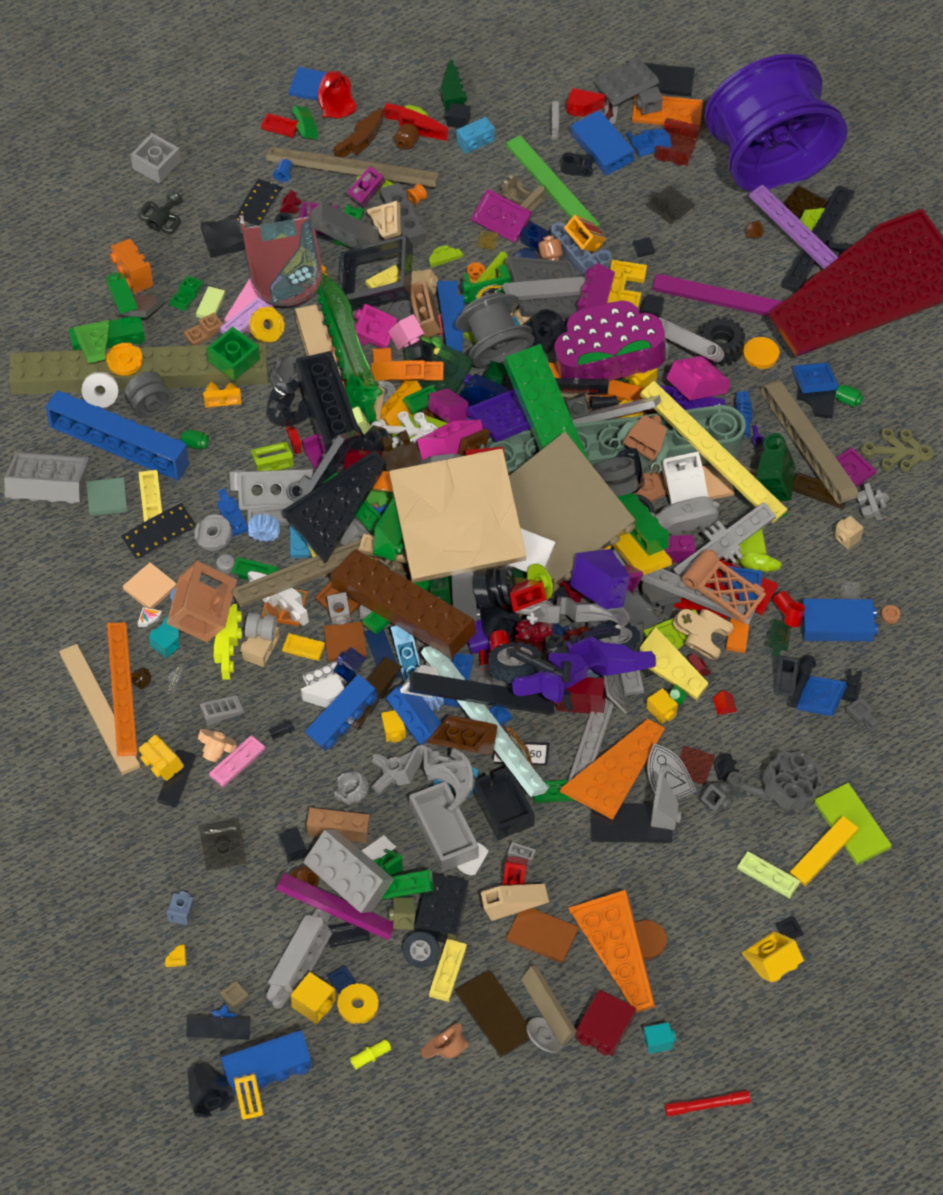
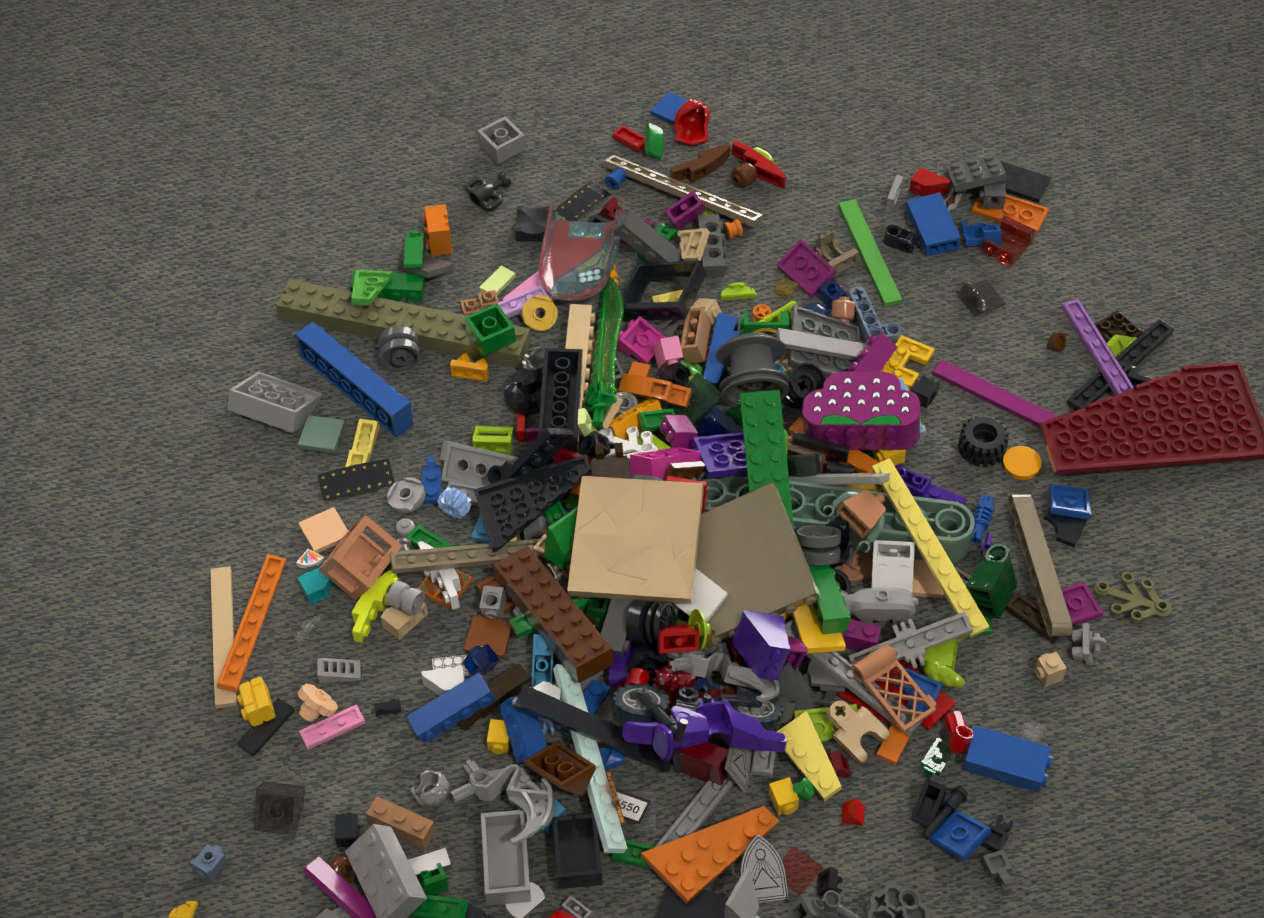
camera: 20 degrees right, 5 degrees down
(100, 379) = (348, 337): white tile -> none
(124, 359) = (389, 310): light orange tile -> none
(141, 678) = (273, 617): dark brown tile -> none
(187, 292) = (481, 265): green slope -> none
(195, 439) = (427, 402): green brick -> none
(303, 647) = (446, 631): yellow tile -> none
(379, 647) = (521, 652): dark blue tile -> none
(452, 87) = (804, 141): dark green slope -> none
(458, 115) = (801, 168): black brick -> none
(475, 135) = (811, 189): dark azure brick -> none
(589, 238) = (886, 307): light orange torso -> none
(643, 247) = (938, 331): black tile -> none
(692, 341) = (948, 430): light grey piece -> none
(697, 378) = (943, 470): dark pink brick -> none
(775, 122) = (1108, 239): dark purple wheel -> none
(849, 395) = (1099, 529): green brick -> none
(890, 614) = (1067, 769): nougat tile -> none

